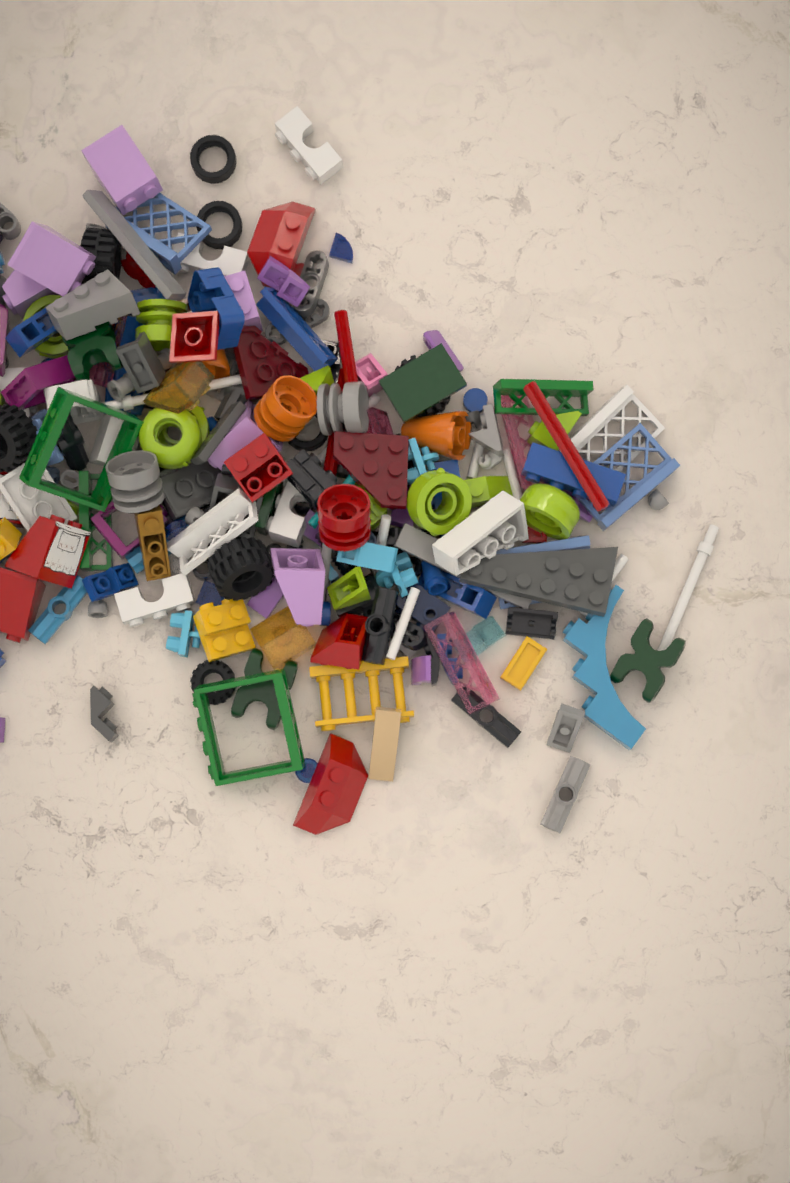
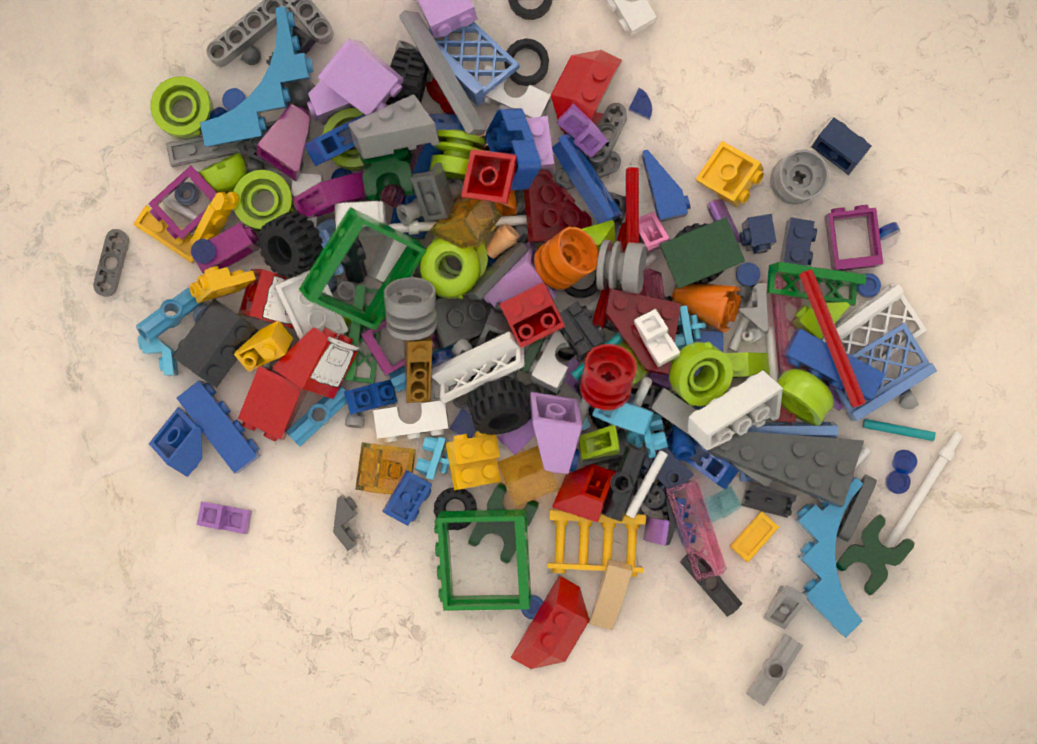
camera: 10 degrees right, 5 degrees up
(135, 653) = (382, 467): none -> clear yellow slope
(162, 677) = (407, 498): none -> blue bracket
(219, 403) = (502, 240): none -> light nougat cone
(379, 332) = (665, 192): none -> blue slope
(387, 472) = (655, 337): none -> white slope
(441, 303) = (731, 174): none -> yellow plate
(477, 357) = (758, 234): none -> dark blue brick
(513, 282) = (803, 164): none -> light grey wheel
(519, 357) = (797, 242): none -> dark blue brick
(547, 258) = (841, 146): none -> dark blue brick
(582, 371) = (860, 211): none -> magenta window
(600, 394) = (871, 286): none -> blue tile
(608, 335) = (888, 230): none -> clear blue tile
(622, 617) = (856, 508): none -> dark grey beam
(653, 532) = (899, 430): none -> teal bar
(660, 585) = (897, 482): none -> clear blue tile
(663, 563) = (904, 461): none -> clear blue tile

